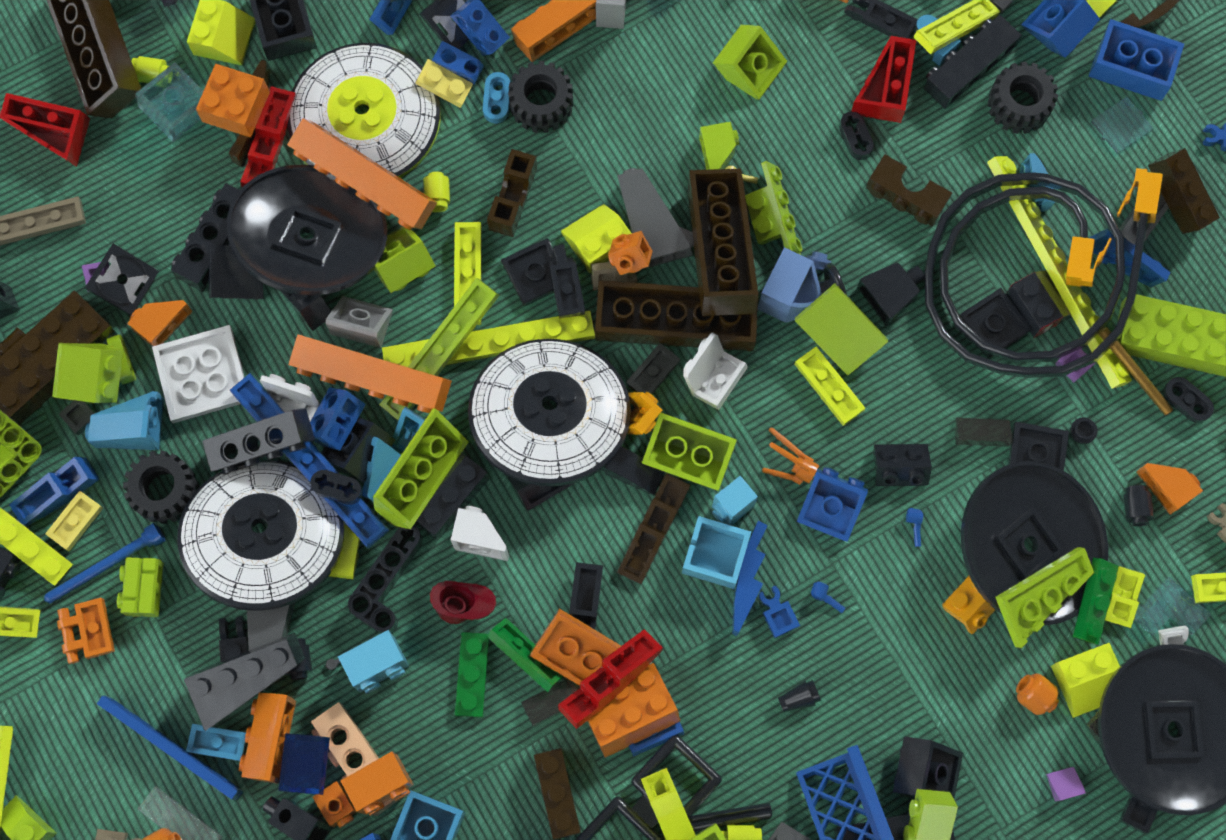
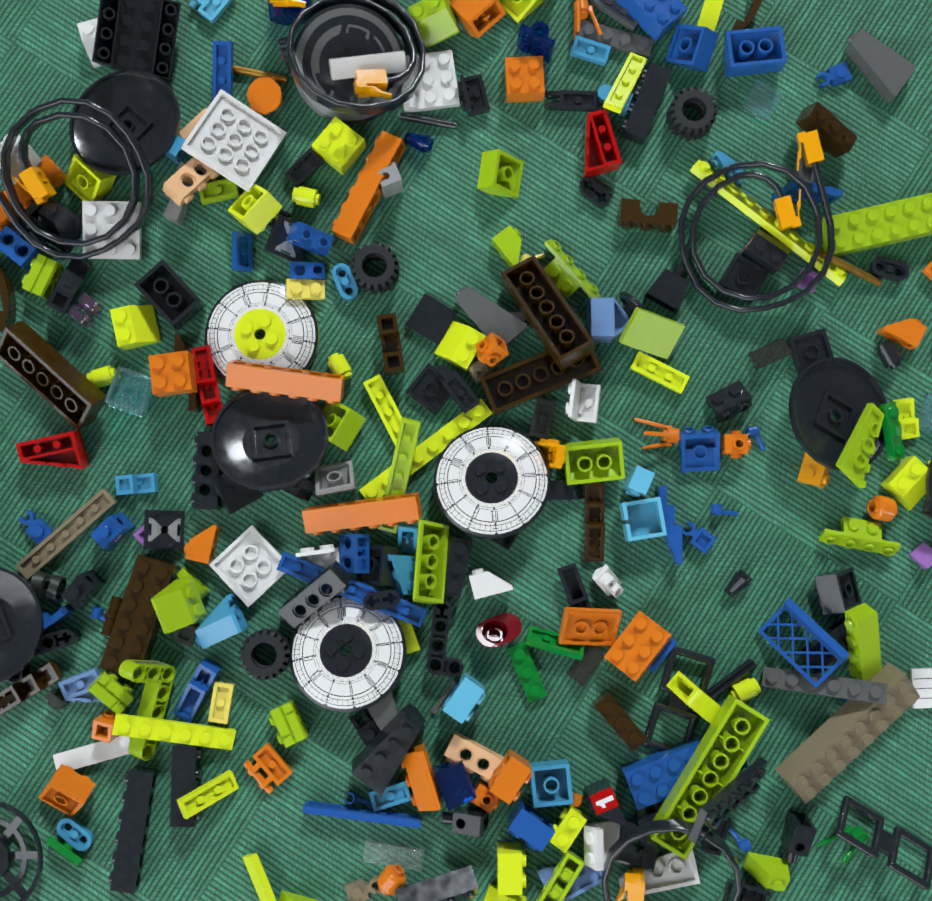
camera: 30 degrees left, 10 degrees up
(60, 250) = (111, 532): none -> blue torso
(120, 213) = (136, 484): none -> dark azure slope
(150, 537) = (276, 687): blue piece -> none
(172, 725) = (356, 798): none -> blue hand
(578, 189) = (431, 319): none -> black tile
(611, 679) = (619, 636): red slope -> none
(632, 608) = (607, 581): none -> white hips
(819, 259) = (612, 292): medium blue plate -> none
(882, 509) = (729, 441): none -> orange brick
(991, 716) = (860, 535): none -> lime bracket
(1083, 430) = (832, 322): black plate -> none

